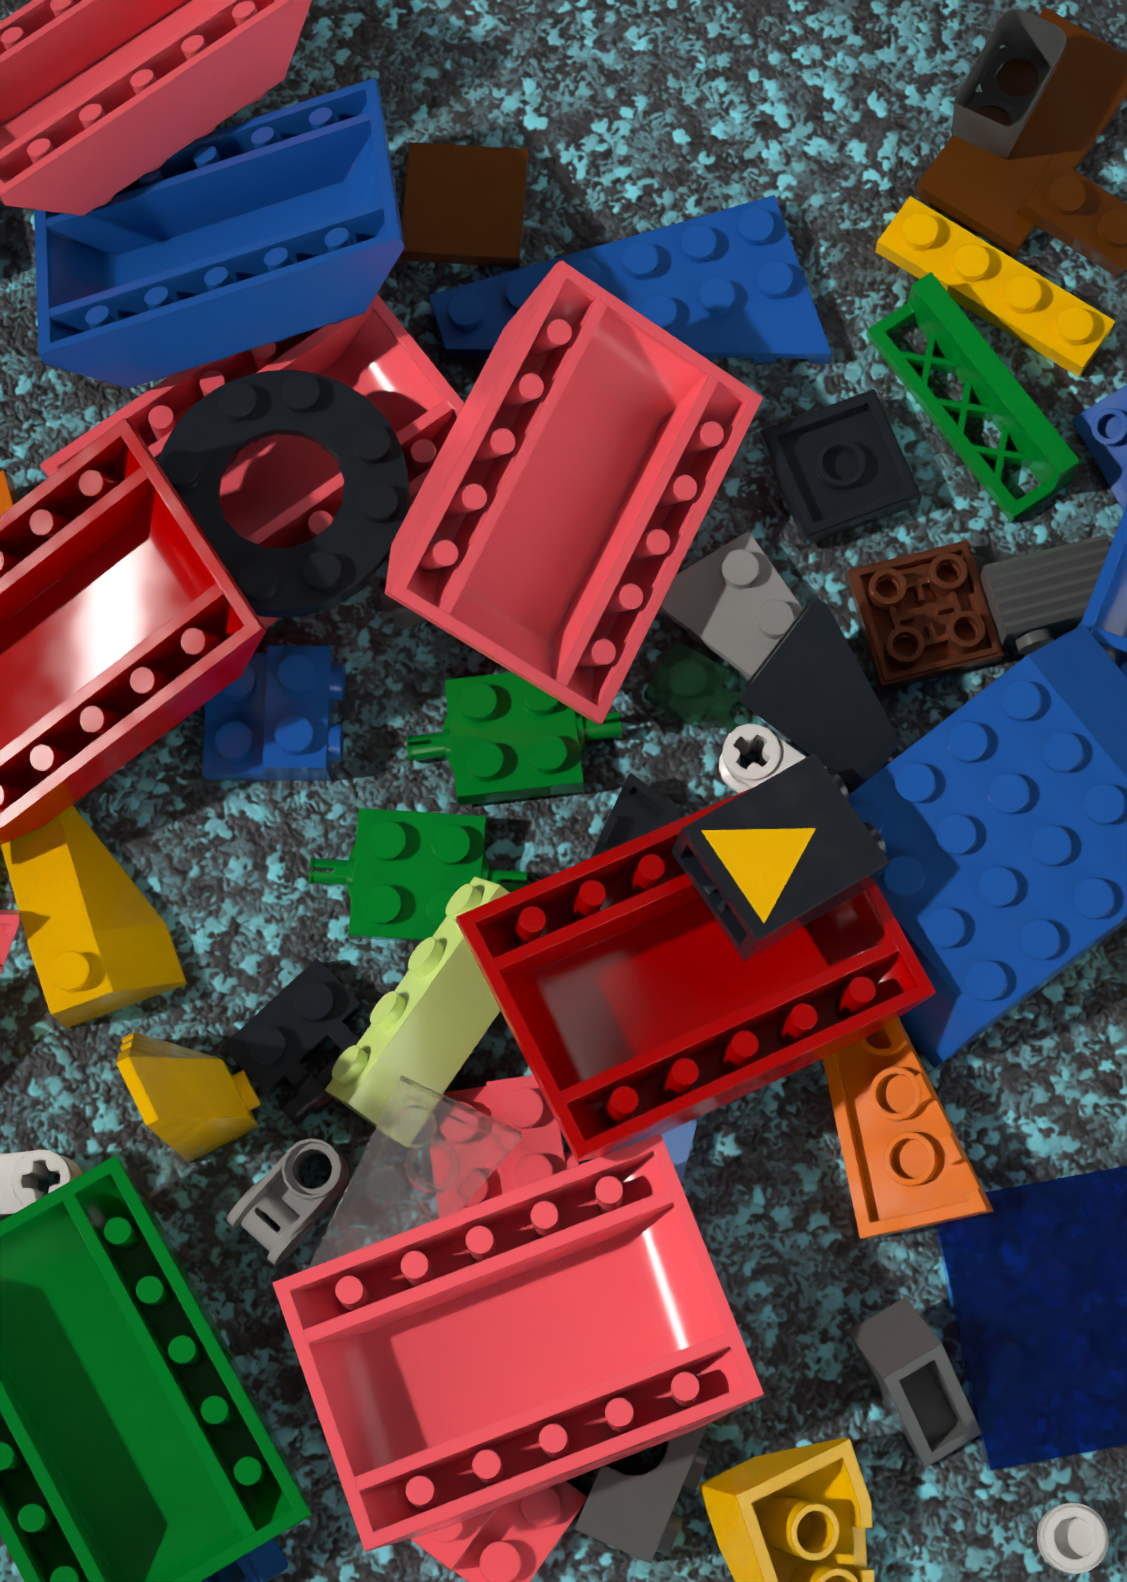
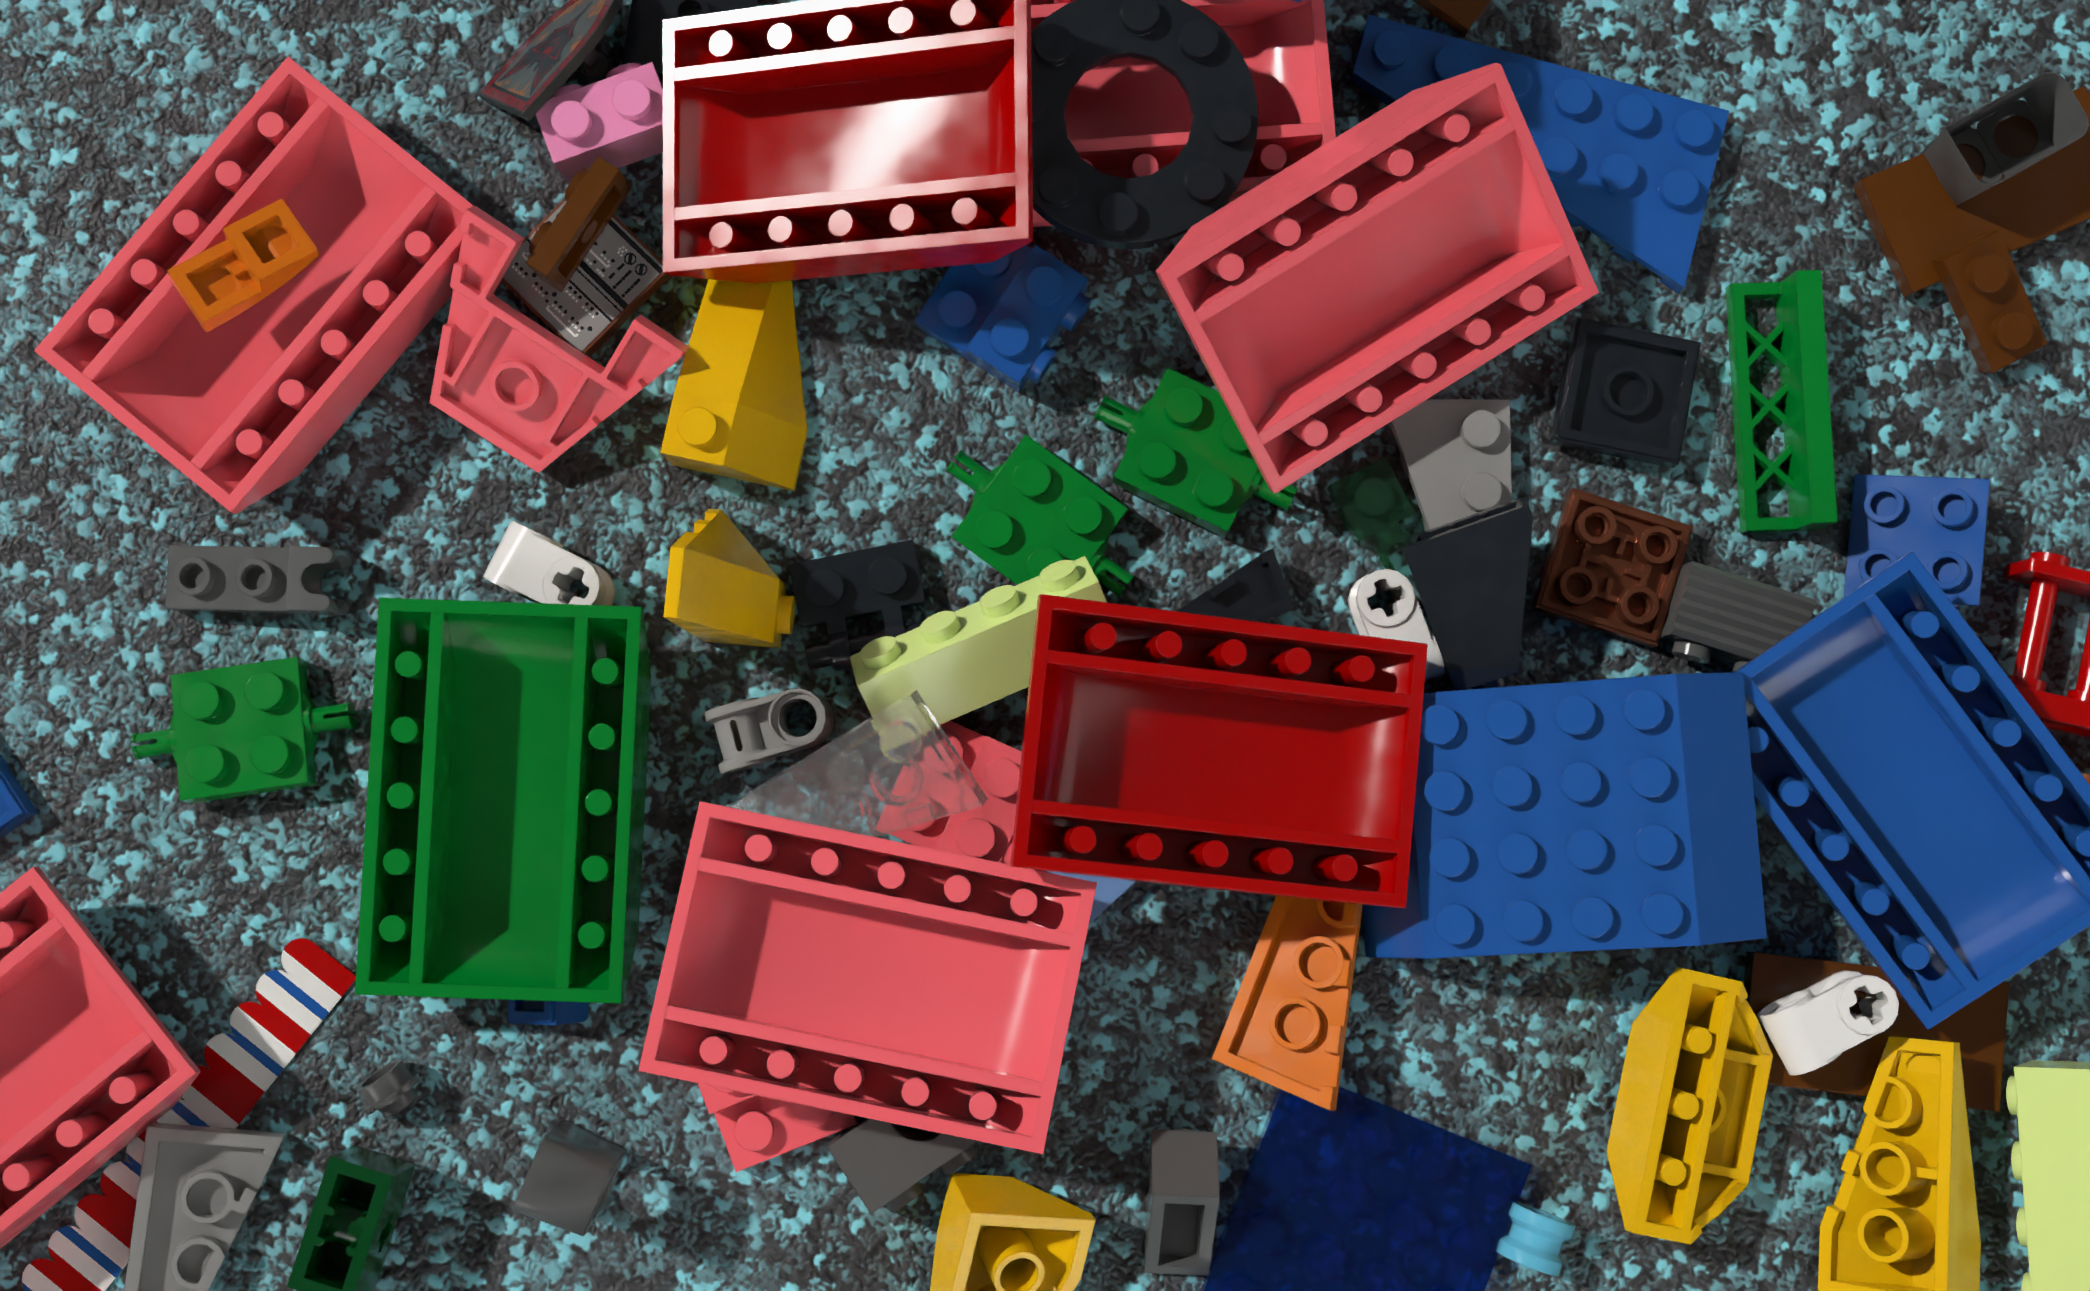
camera: 25 degrees right, 10 degrees up
(780, 855) = (1350, 713): black brick -> none
(995, 286) = (1868, 314): yellow plate -> none

